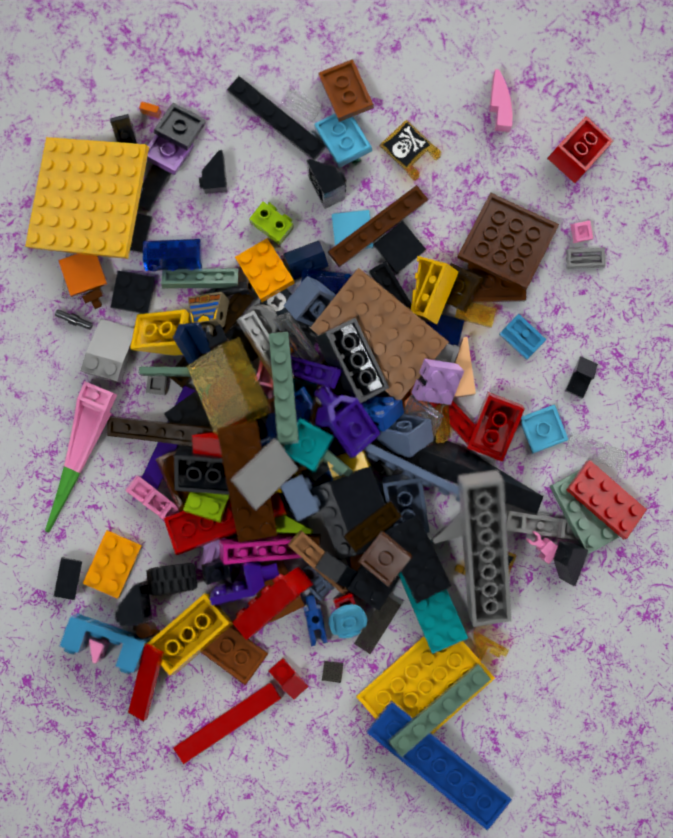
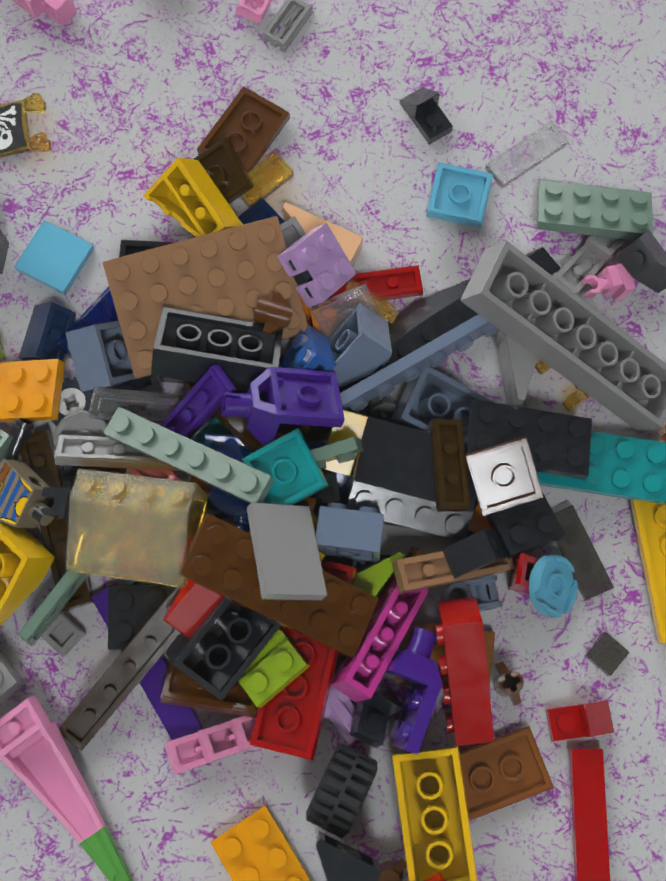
camera: 60 degrees left, 10 degrees down
(191, 341) = (37, 538): dark blue panel -> none
(281, 629) = (508, 683): none -> reddish brown piece
(313, 609) = (507, 627): blue hinge -> none
(377, 226) = (71, 221): reddish brown plate -> none
(391, 378) = (273, 313): none -> reddish brown piece
(399, 247) = (116, 215): black tile -> none
(495, 426) = (419, 241): red slope -> none
(508, 241) = (204, 87): reddish brown plate -> none
(522, 336) = (330, 146): dark azure plate -> none
(606, 499) = (596, 174): plate -> none

